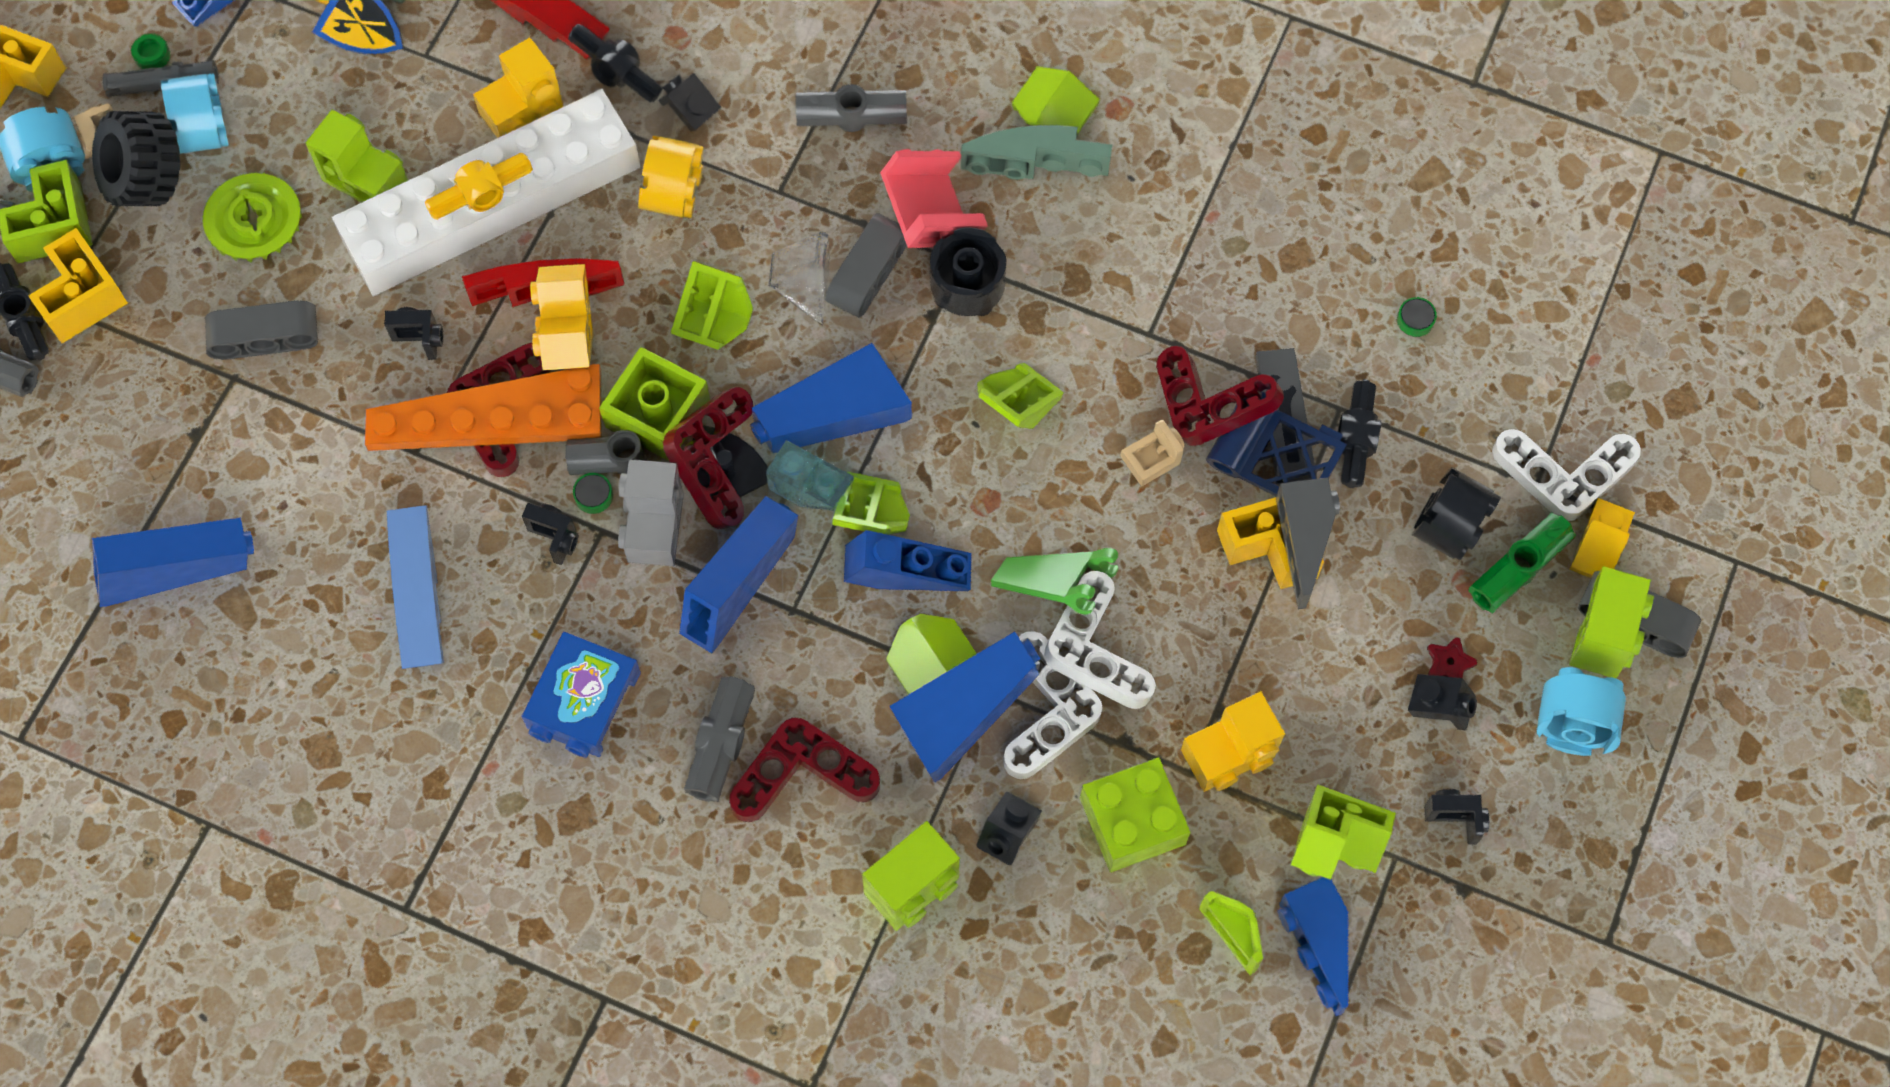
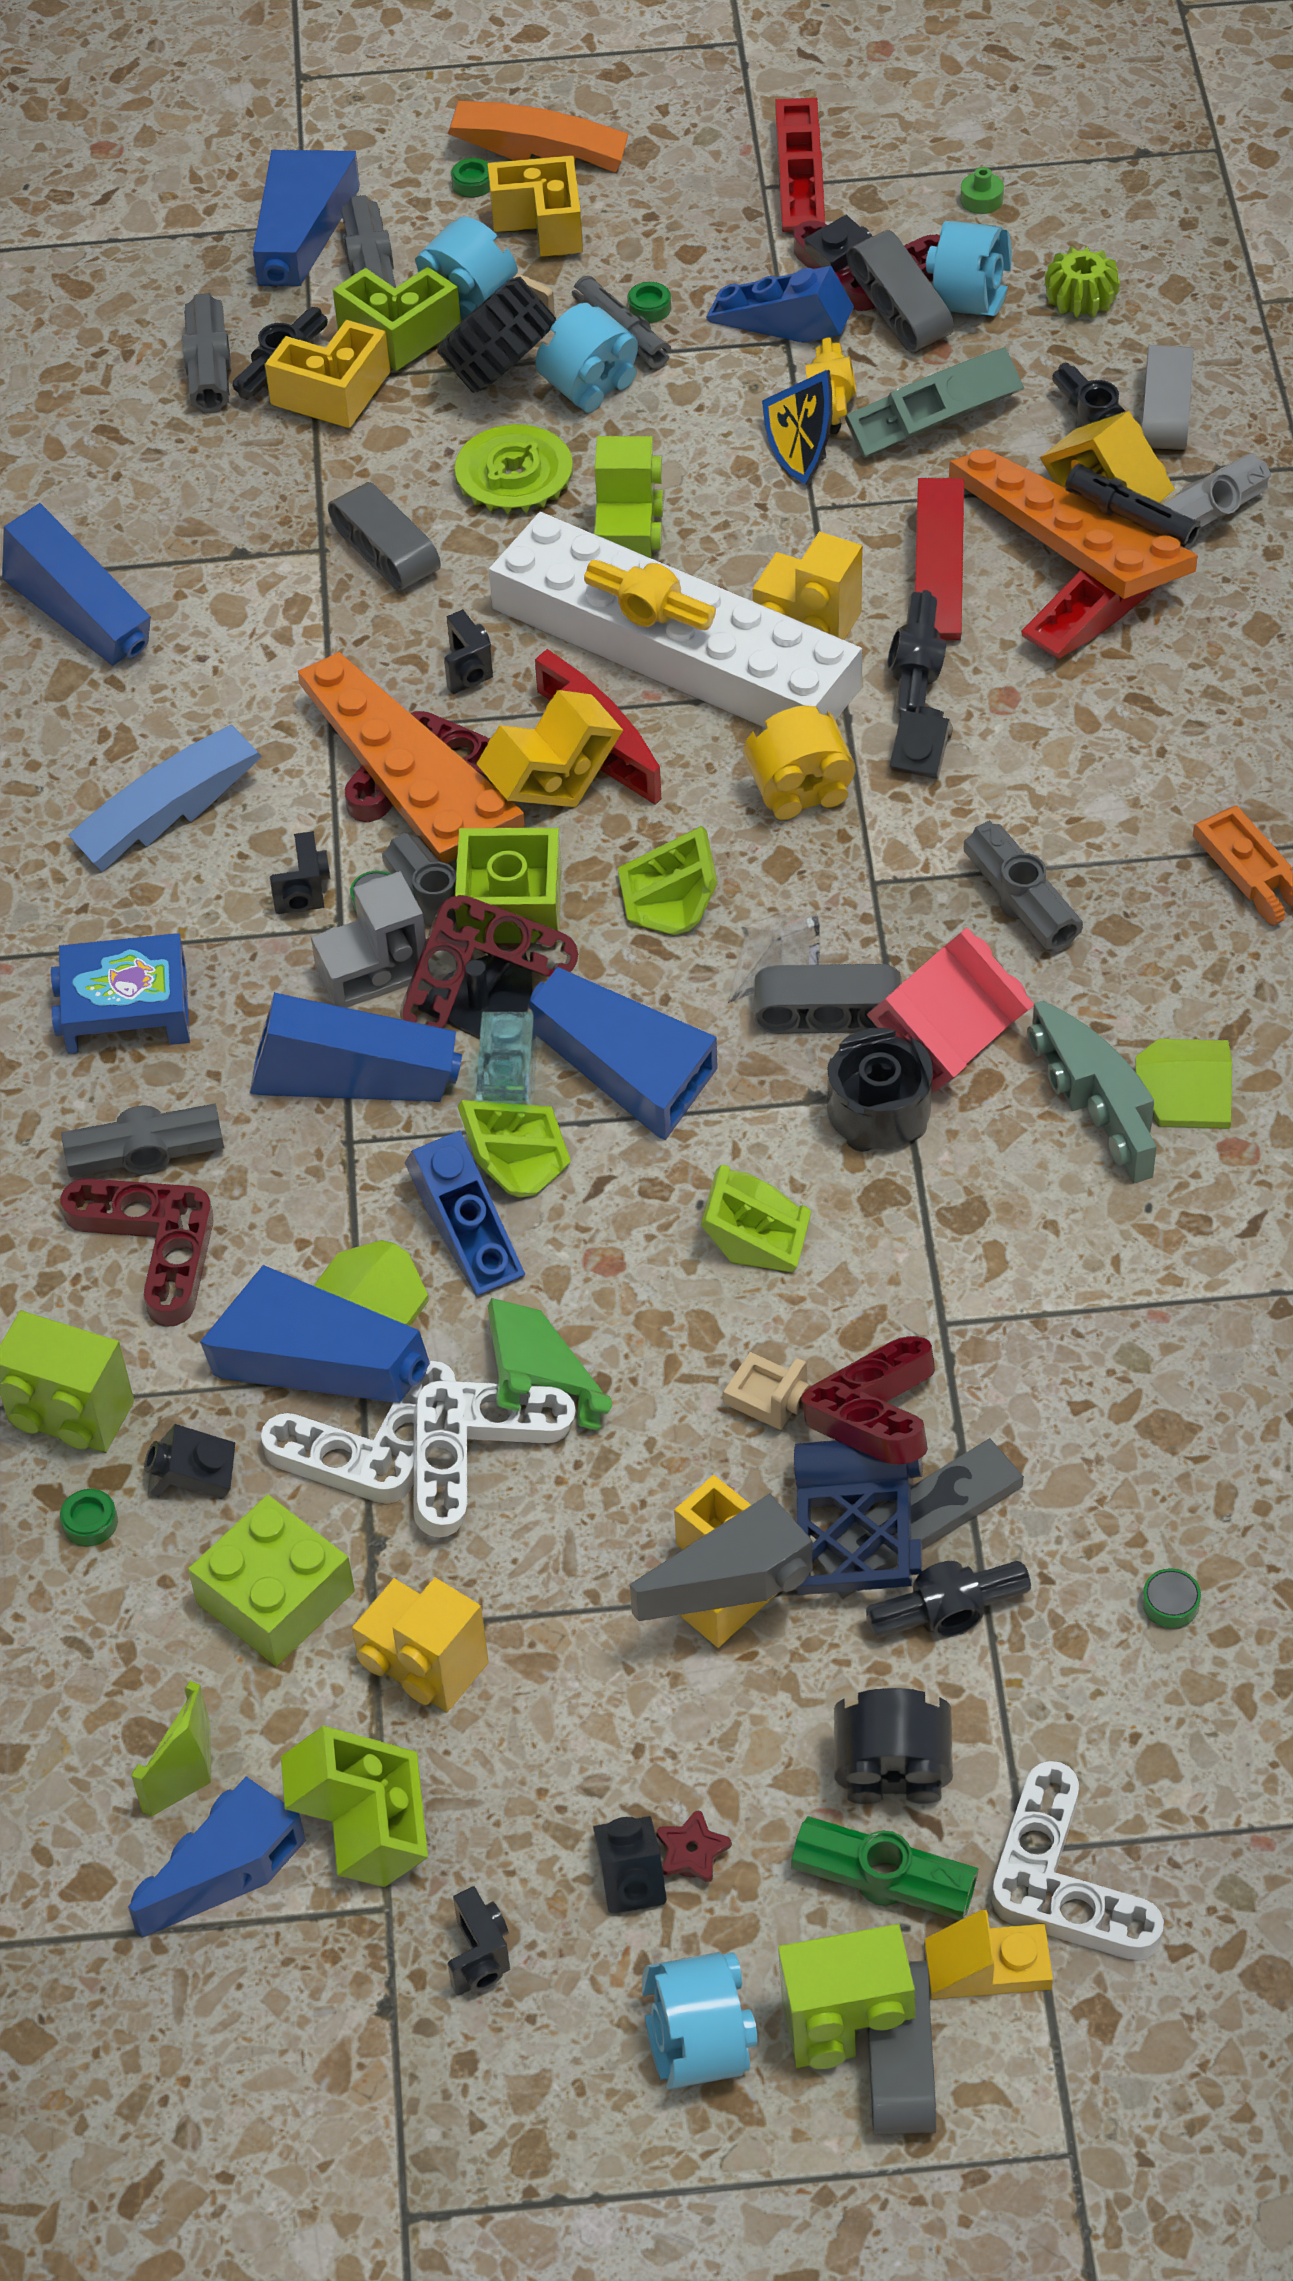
camera: 65 degrees right, 15 degrees down
(1009, 911) = (88, 1517): none -> green tile

